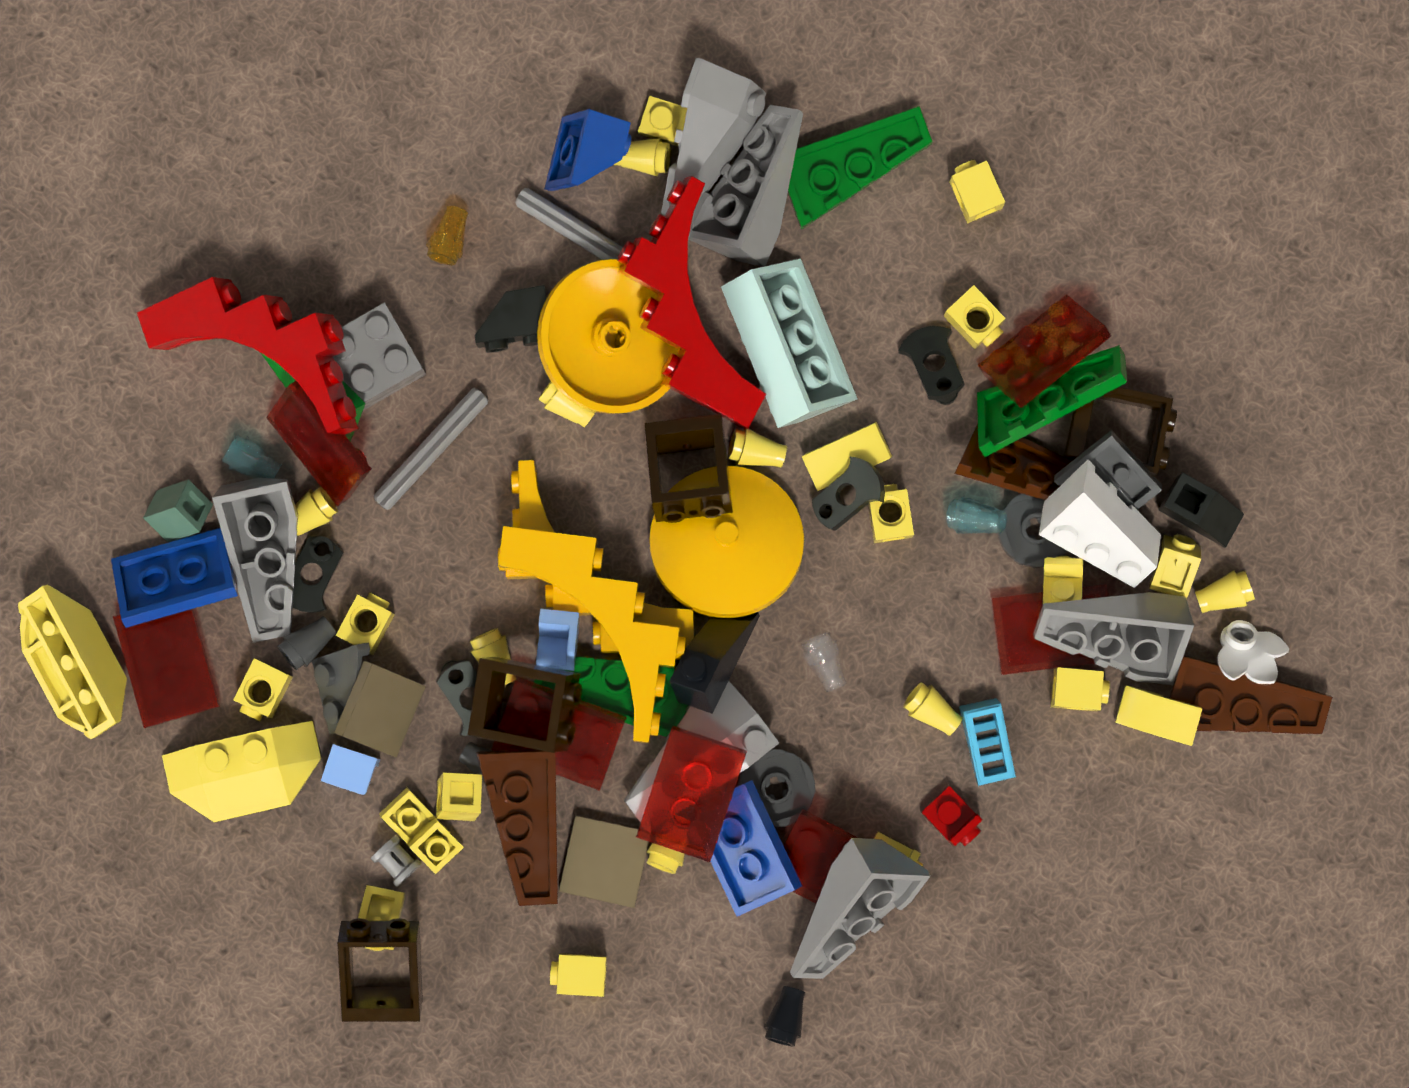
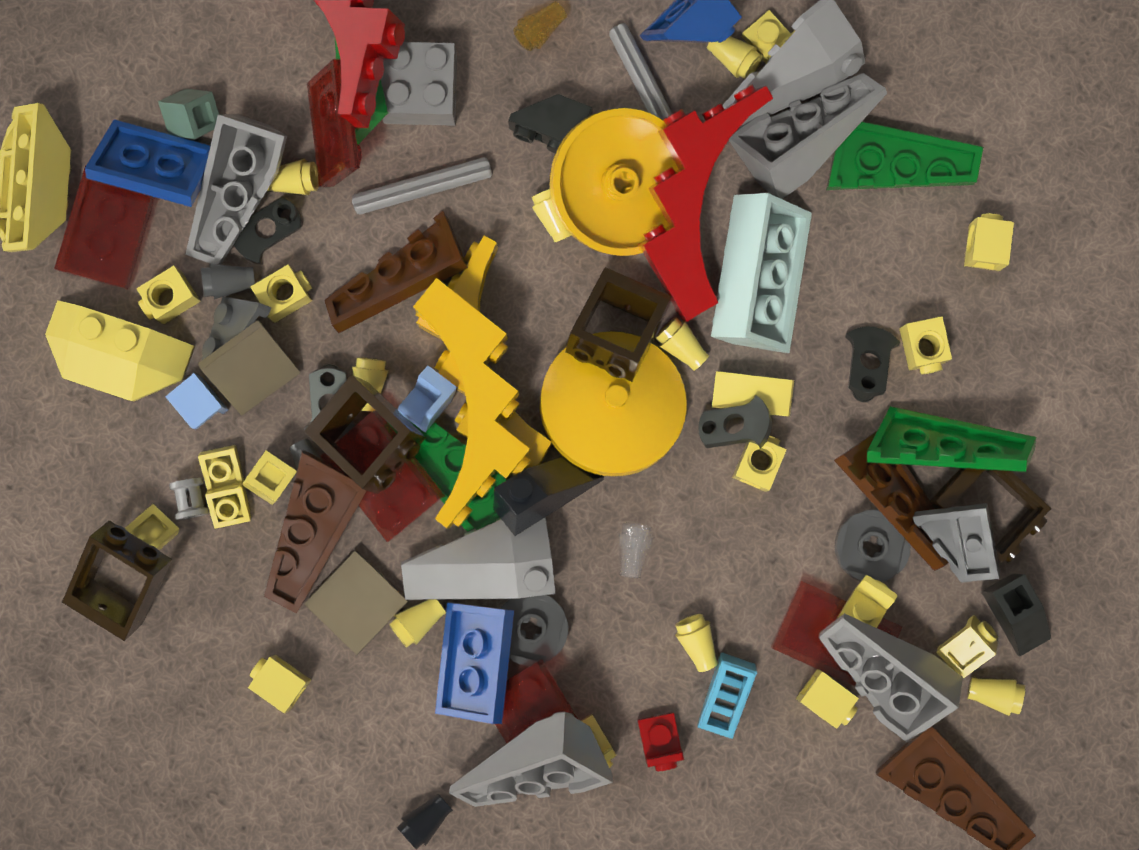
camera: 30 degrees right, 0 degrees up
(250, 459) = (272, 106): clear light blue cone -> none
(462, 543) = (398, 276): none -> reddish brown wing
(691, 793) = (457, 591): clear red plate -> none
(974, 517) = (826, 505): clear light blue cone -> none
(1044, 350) = (968, 405): clear red plate -> none
(1100, 527) = (928, 577): white wedge -> none
(1158, 715) = (882, 762): light yellow slope -> none
(1250, 653) = (988, 756): white plate -> none

